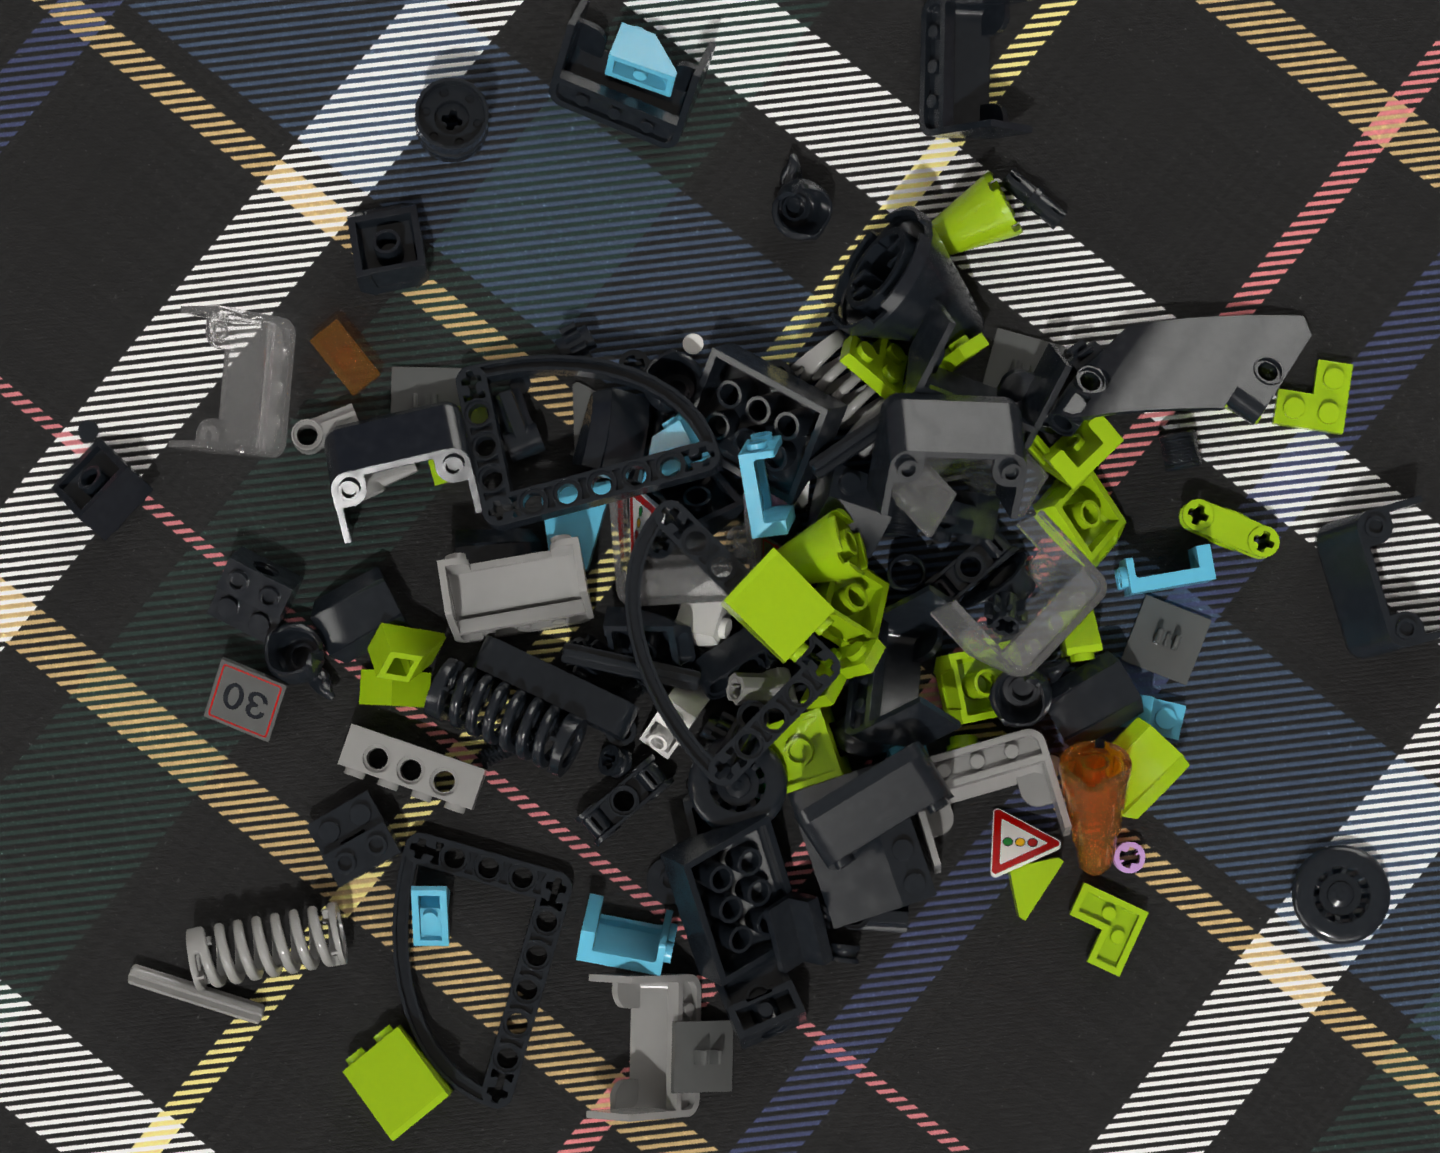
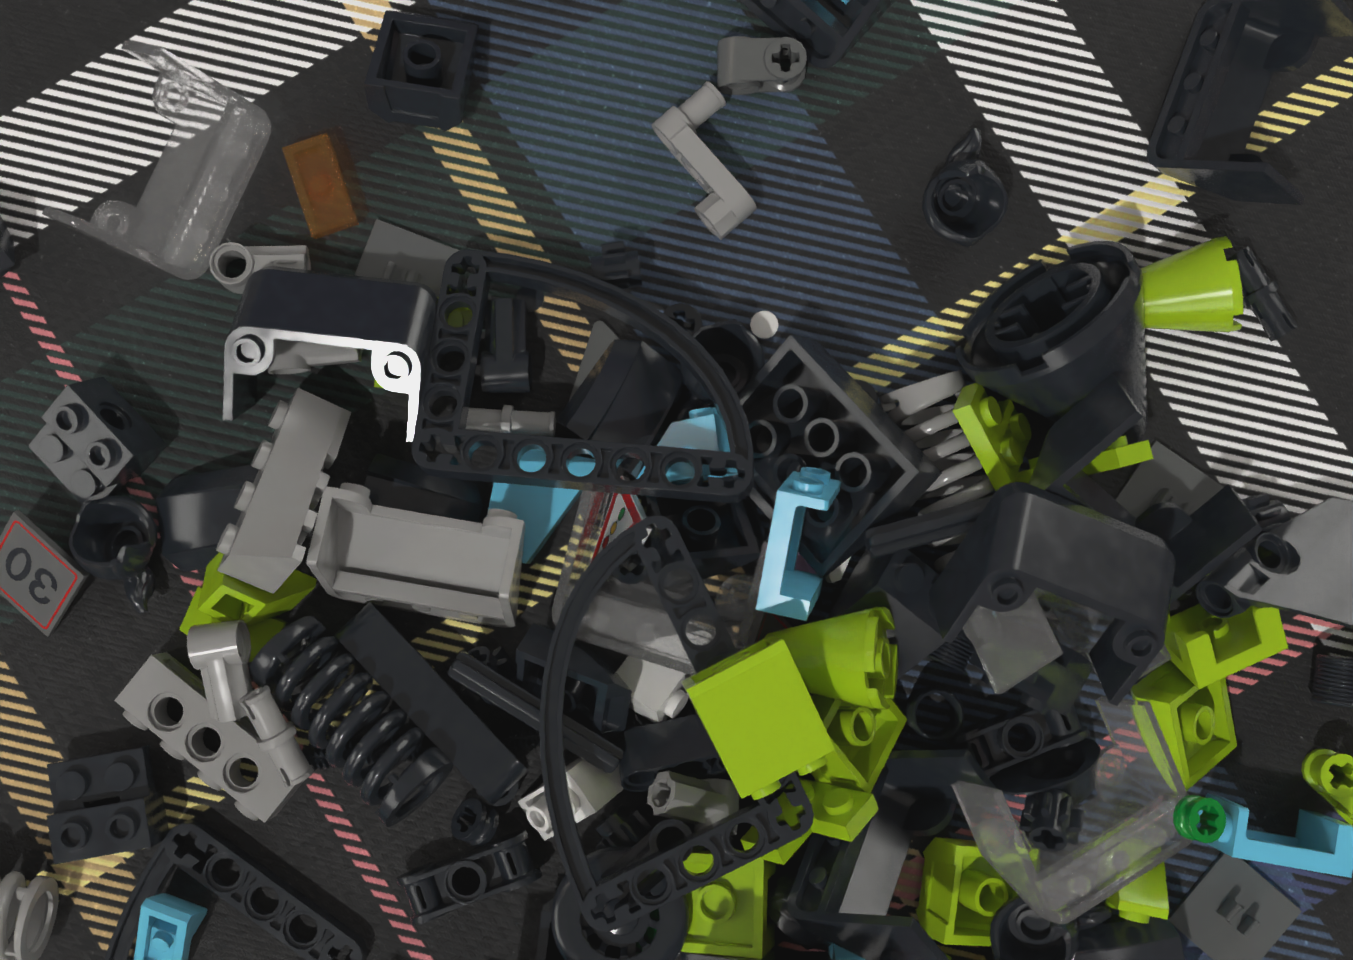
camera: 15 degrees right, 0 degrees up
(404, 703) = (222, 656): none -> light grey piece
(406, 576) = (287, 488): none -> light grey wedge
(460, 744) = (276, 736): none -> light grey pin
(542, 474) = (512, 421): none -> light grey pin
(617, 164) = (754, 66): none -> dark grey piece
(636, 267) = (727, 199): none -> light grey beam
(1093, 576) = (1212, 819): none -> green bush

